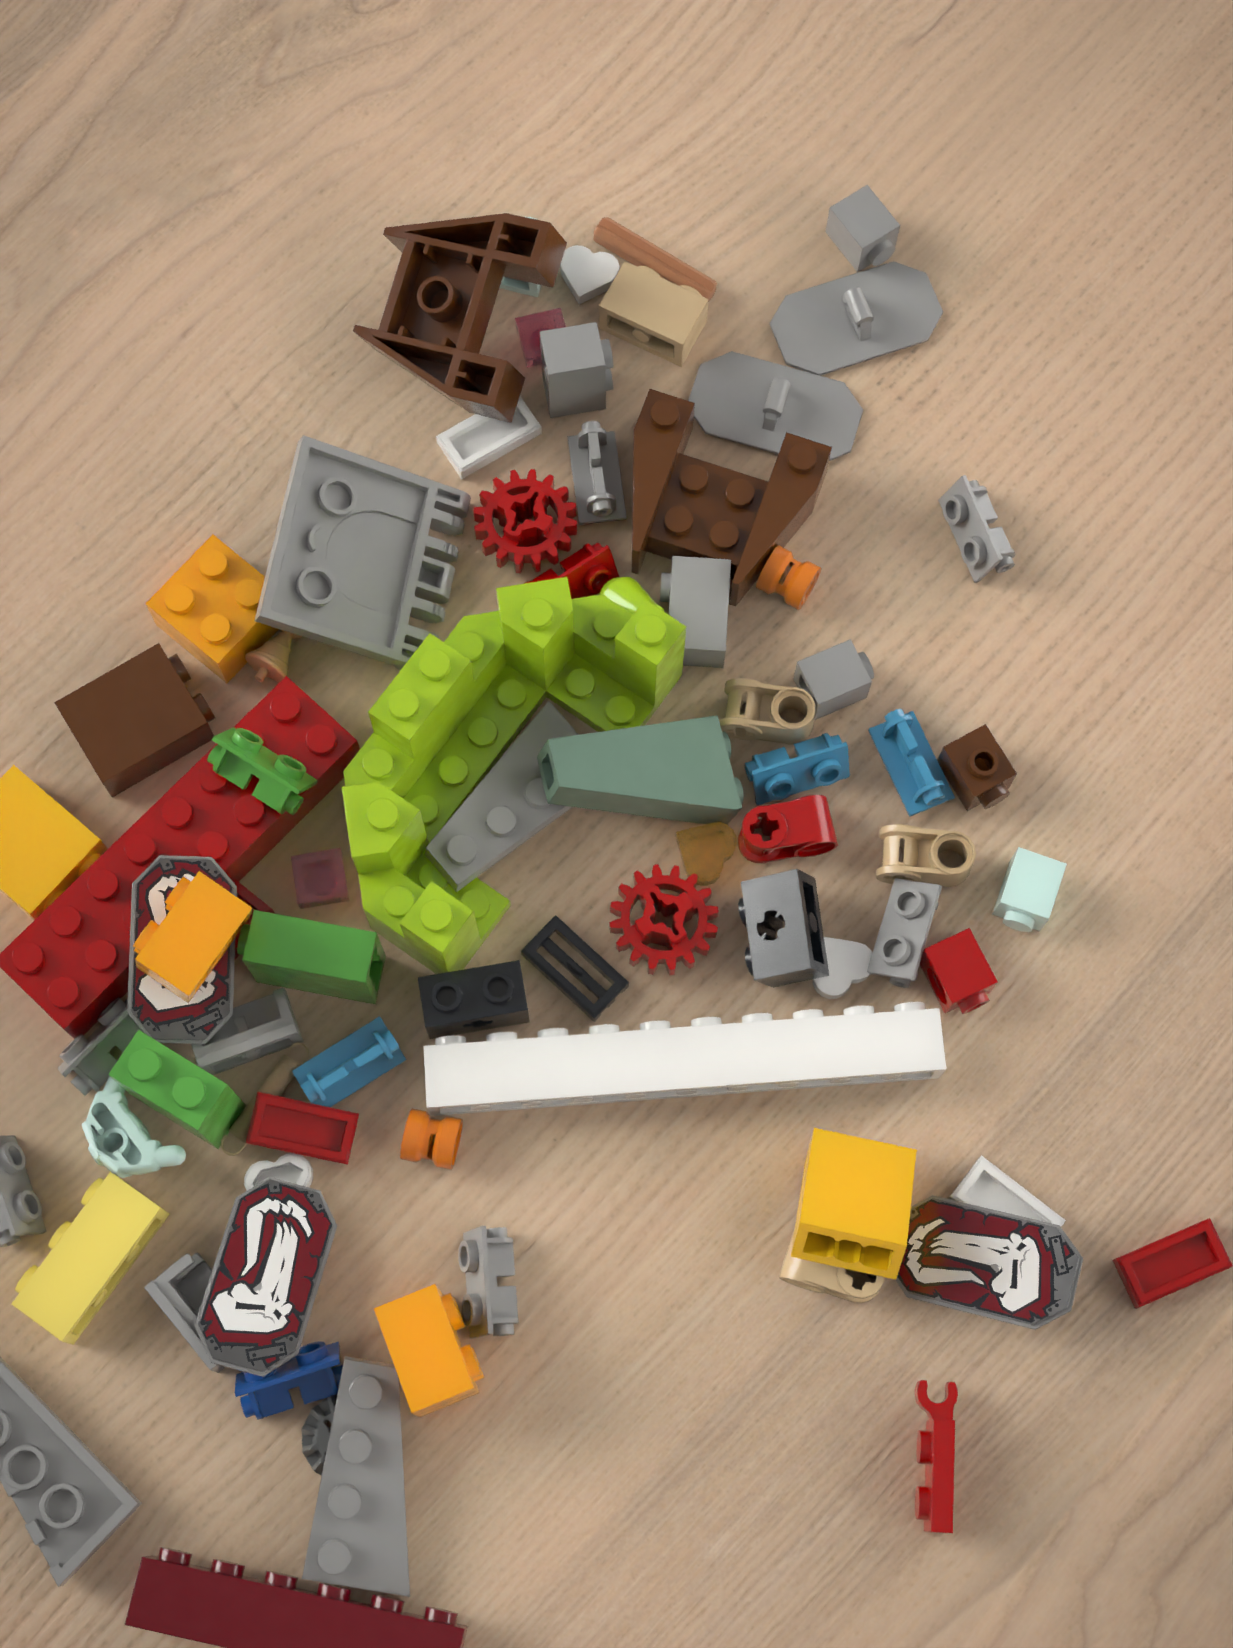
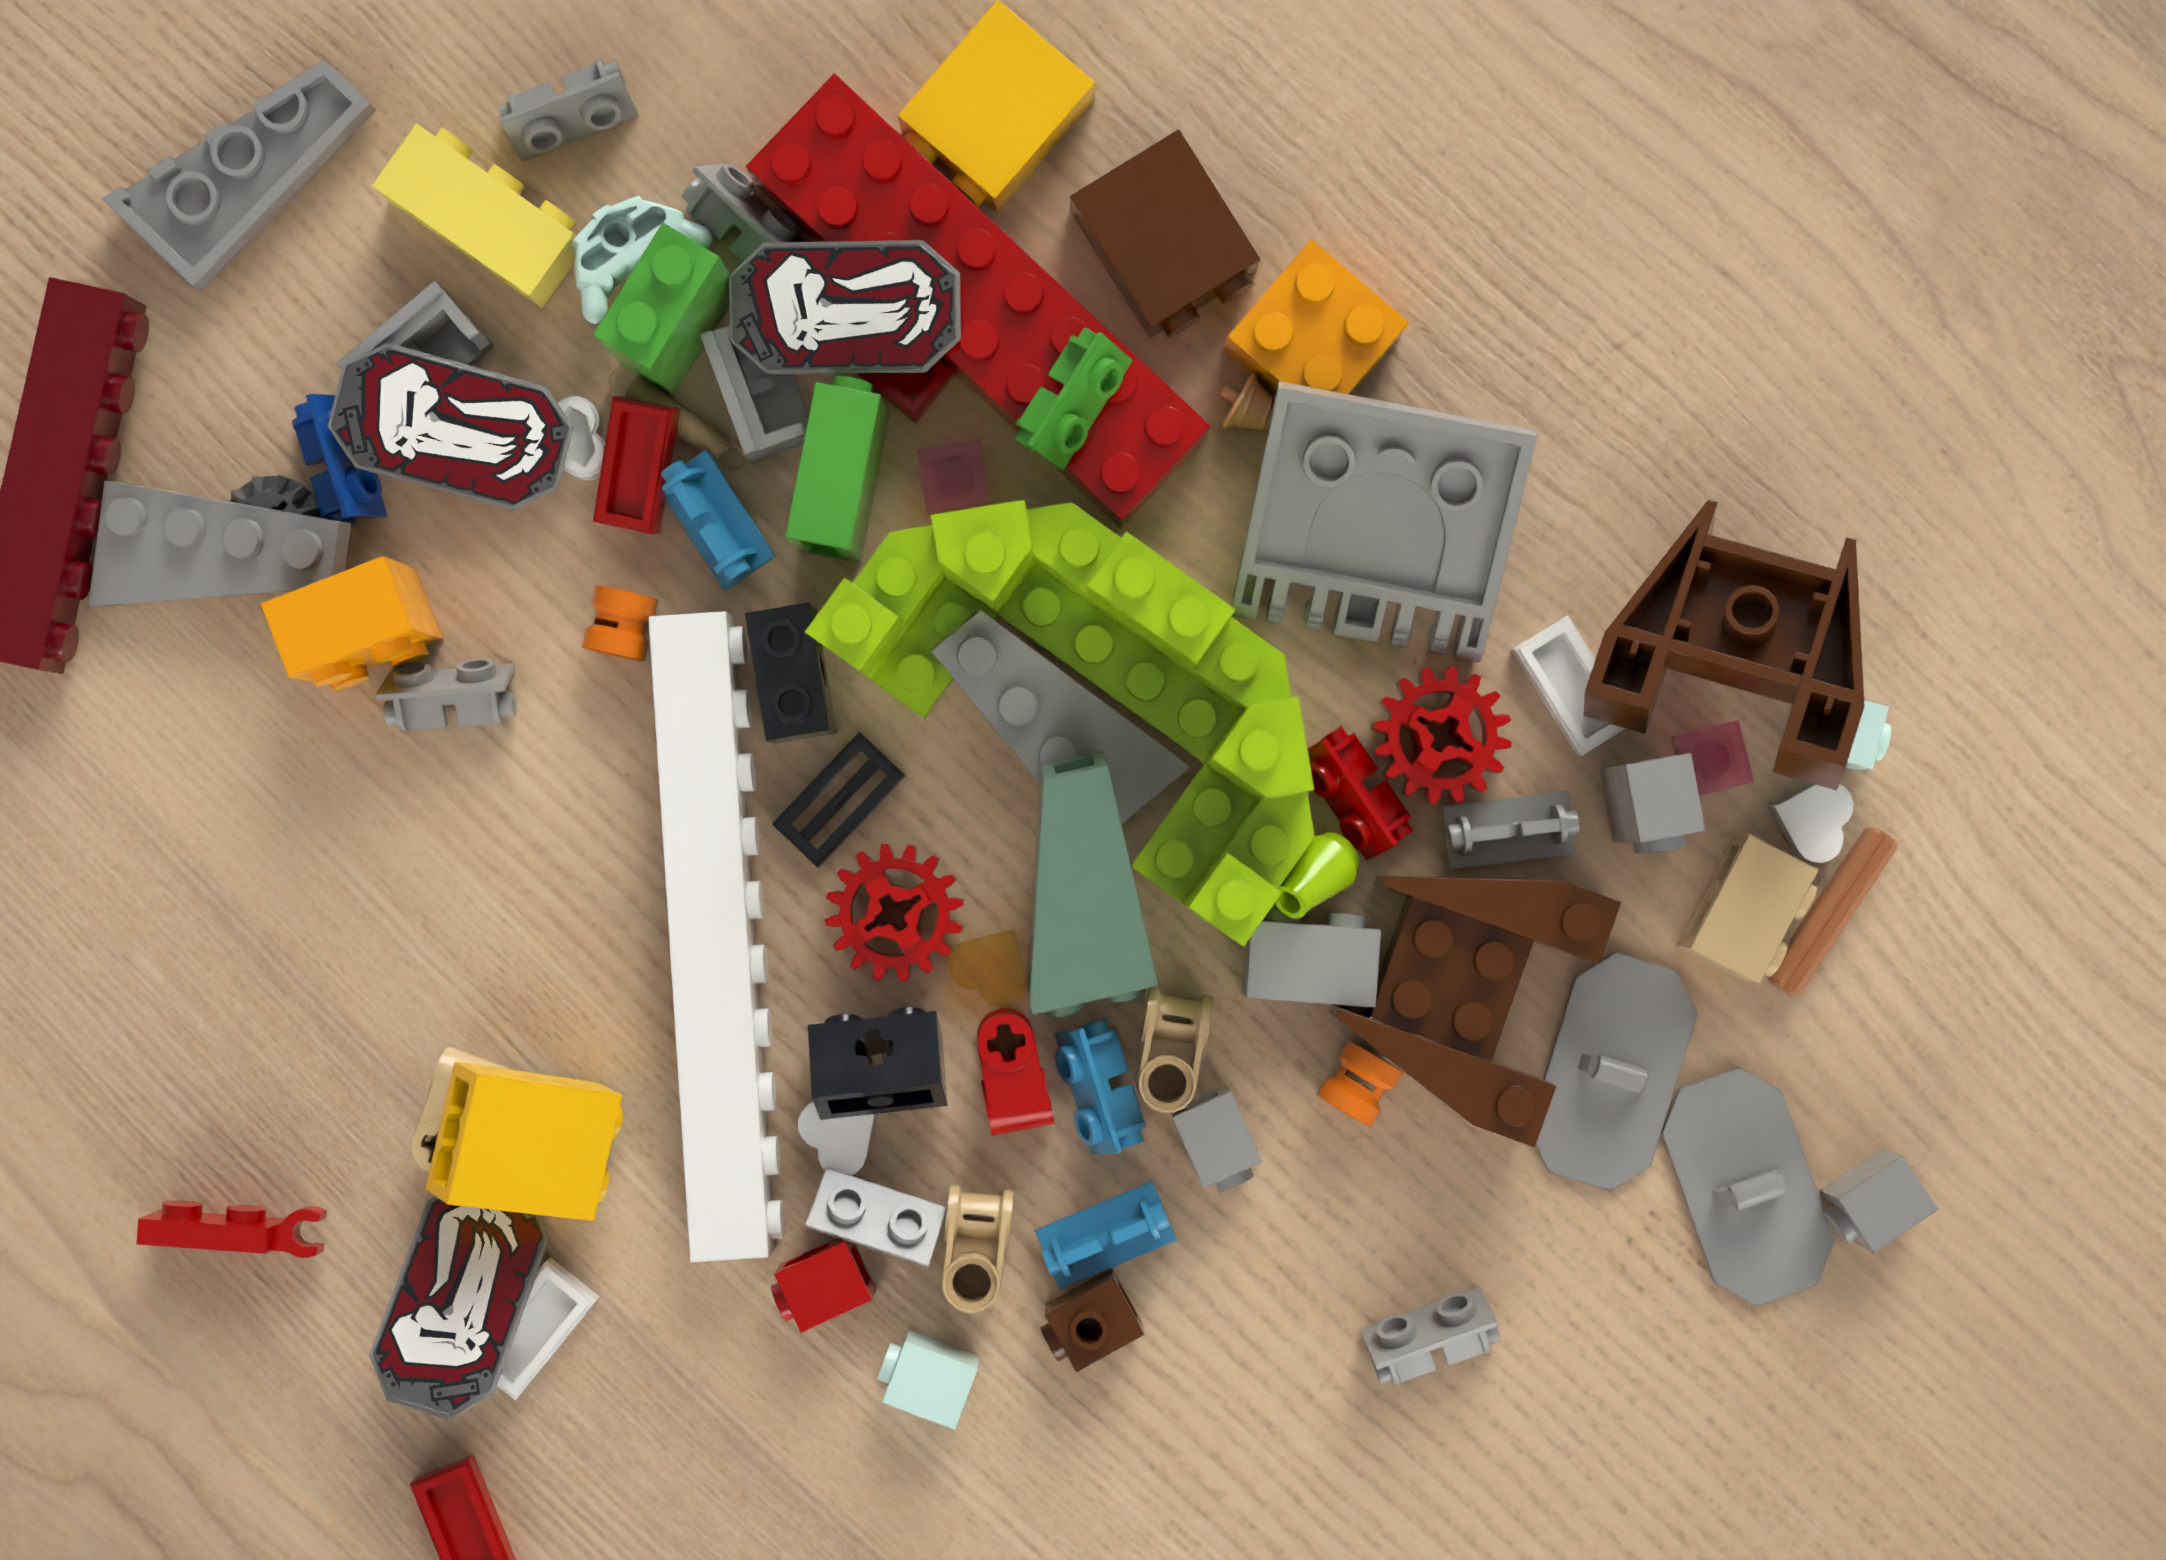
camera: 85 degrees right, 15 degrees up
(192, 935) = (834, 318): light orange brick -> none

